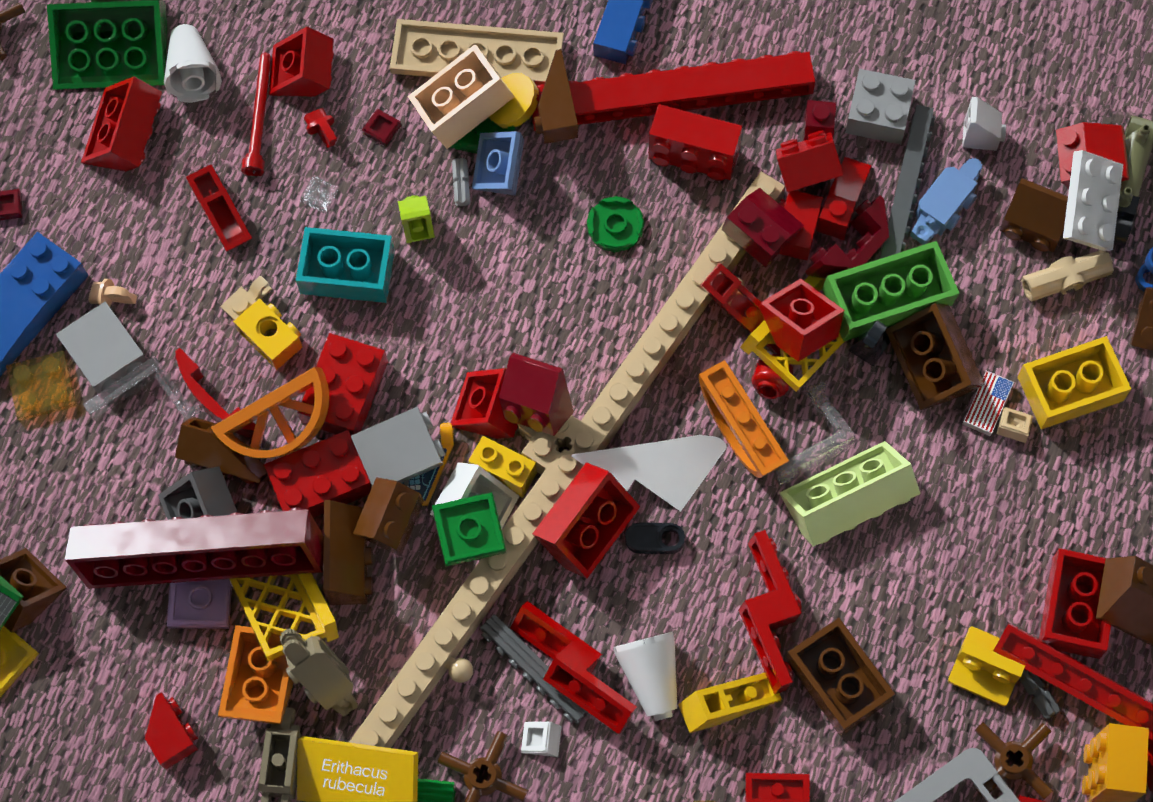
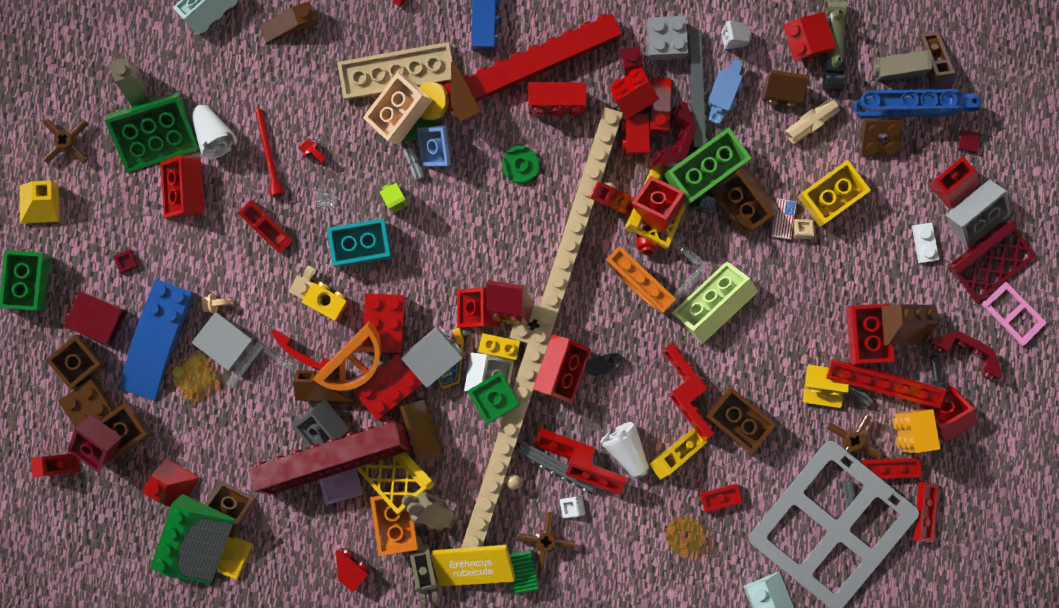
camera: 20 degrees left, 15 degrees up
(302, 64) = (285, 111): red slope -> none
(381, 127) = (350, 139): dark red tile -> none
(389, 515) = (440, 401): reddish brown slope -> none
(666, 467) = (597, 319): white sticker -> none
(761, 226) = (617, 147): dark red slope -> none
(1093, 200) = (819, 72): white plate -> none

